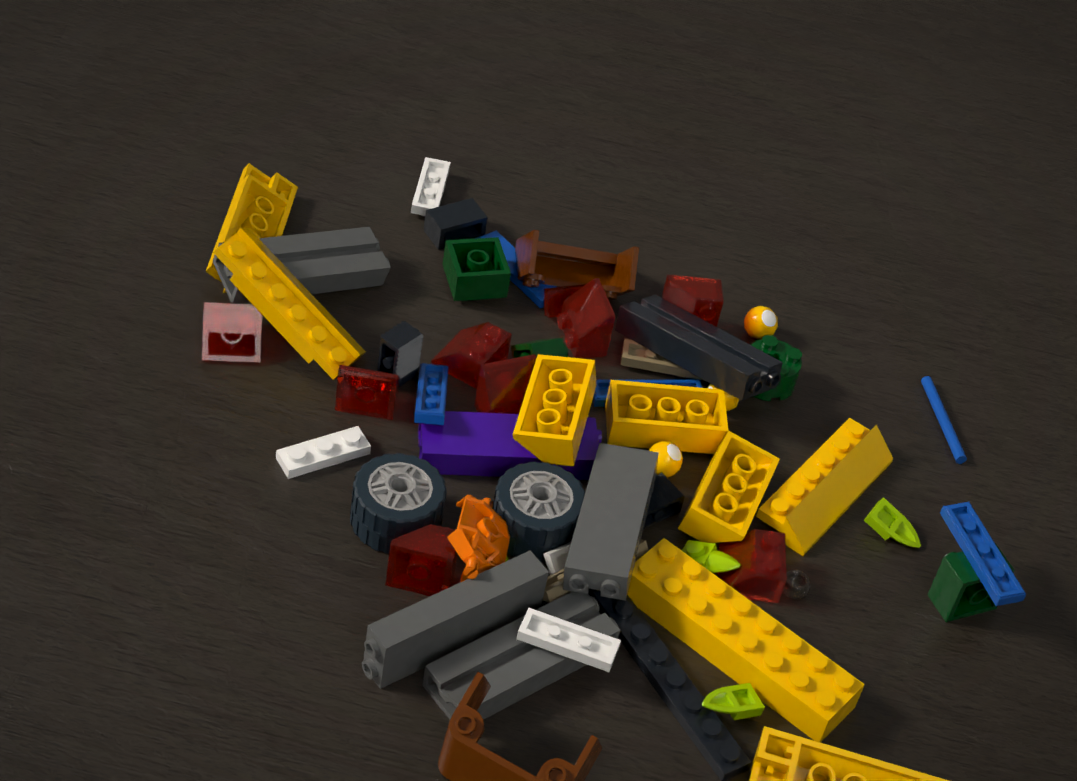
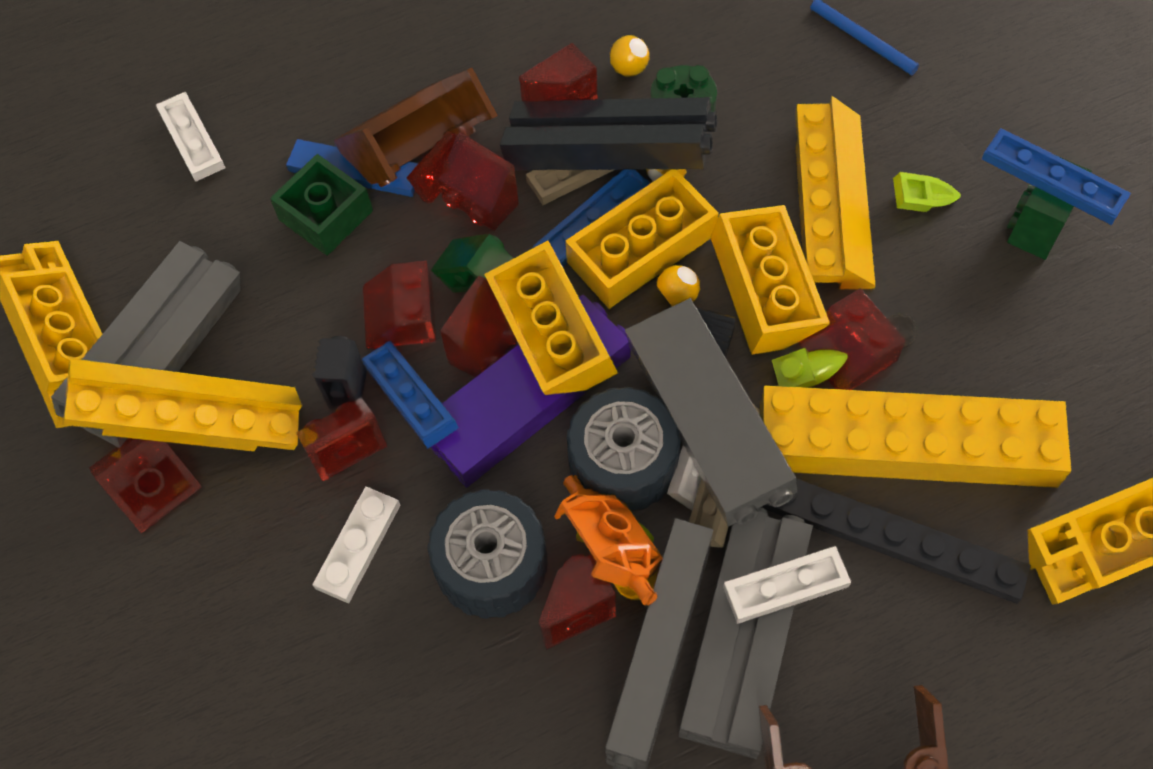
camera: 25 degrees left, 20 degrees up
(455, 222) = (252, 162): black piece -> none
(736, 700) = (964, 511): lime plate -> none

